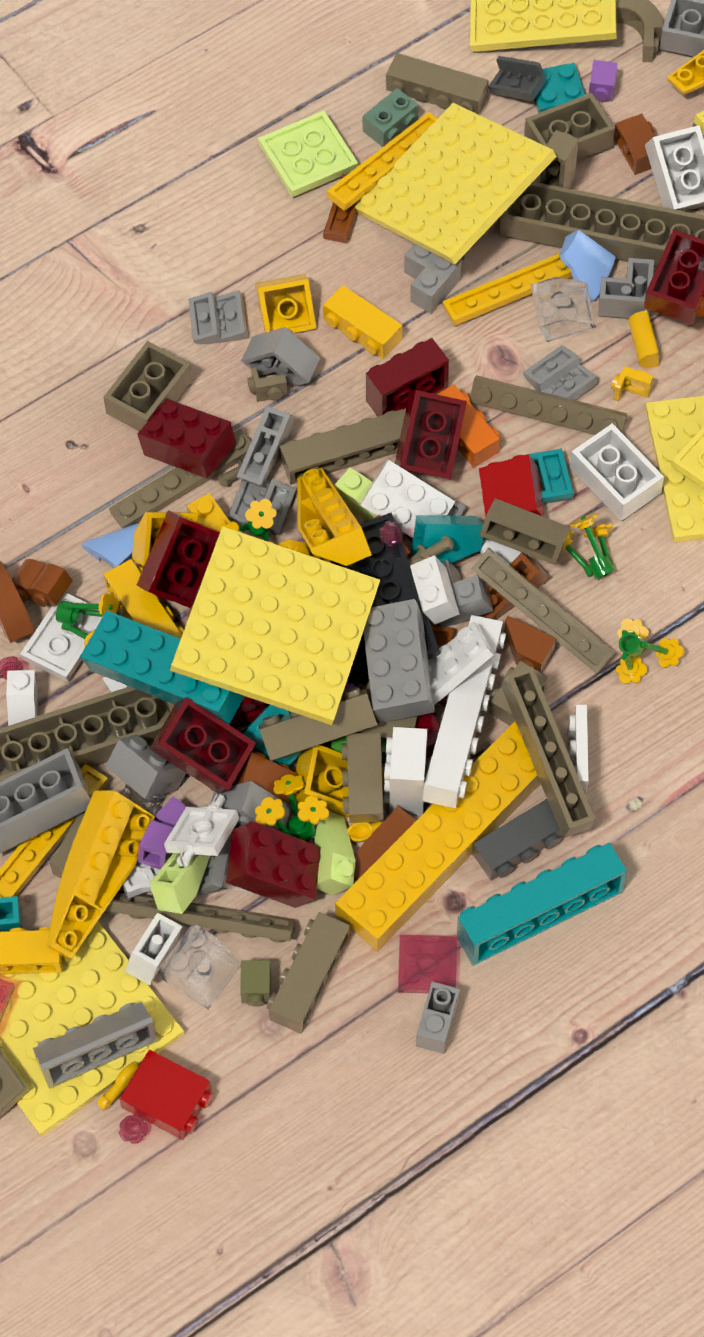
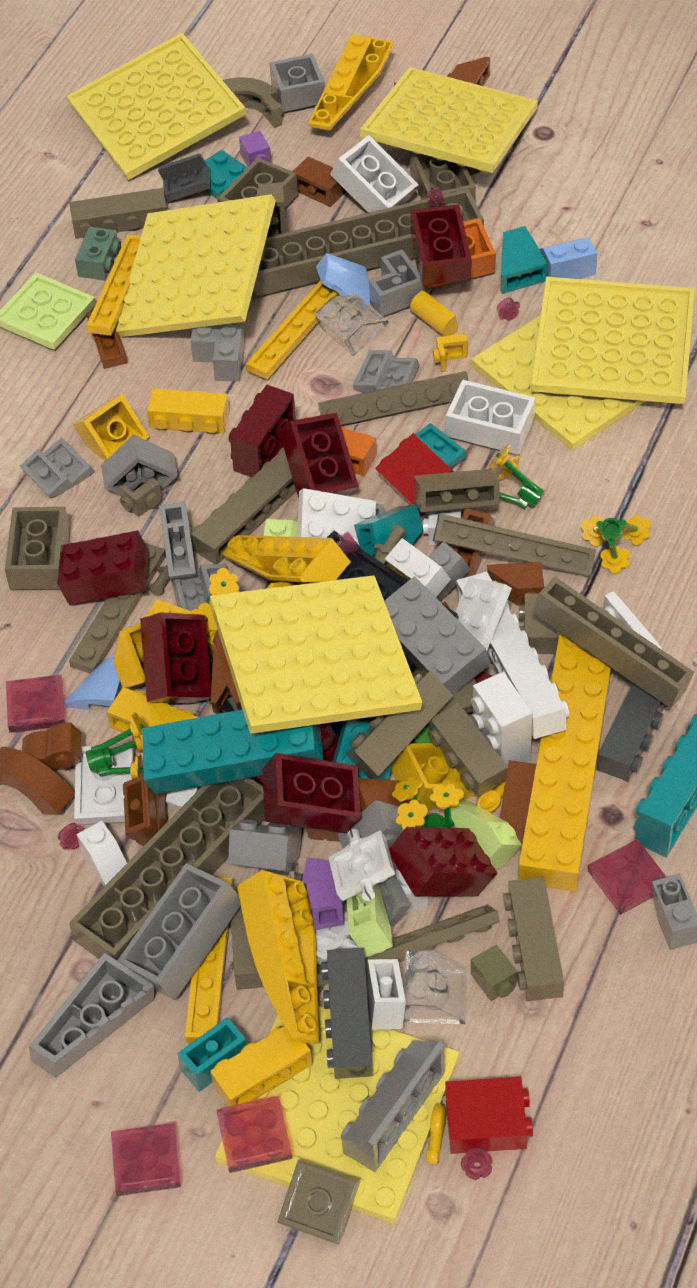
camera: 30 degrees left, 10 degrees down
(57, 532) = (35, 703): none -> clear pink plate
(74, 681) = (142, 810): none -> dark orange brick
(111, 948) = (348, 1013): none -> dark grey brick

